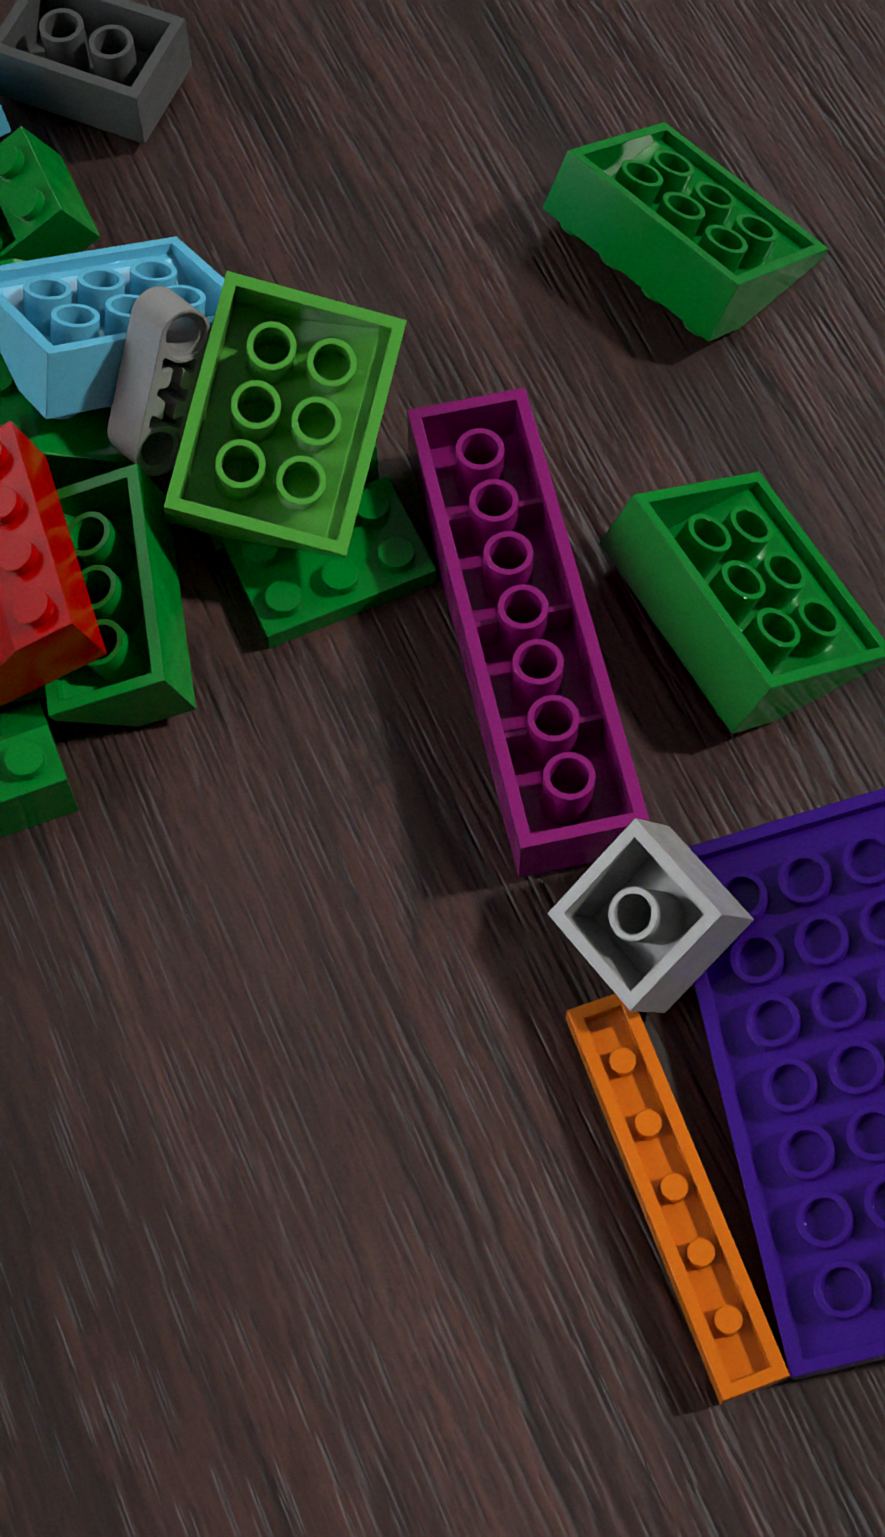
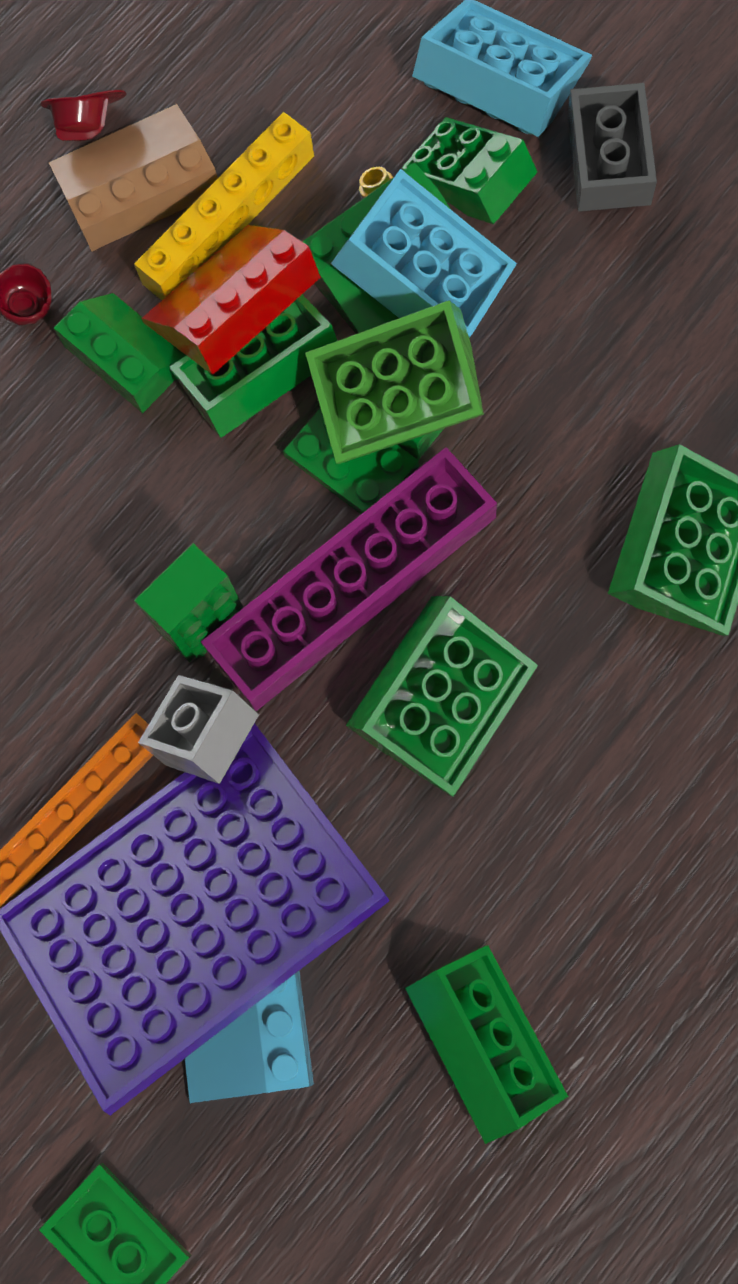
camera: 75 degrees right, 10 degrees up
(157, 379) = (386, 301): light grey beam -> none
(460, 829) = (189, 602): none -> green brick

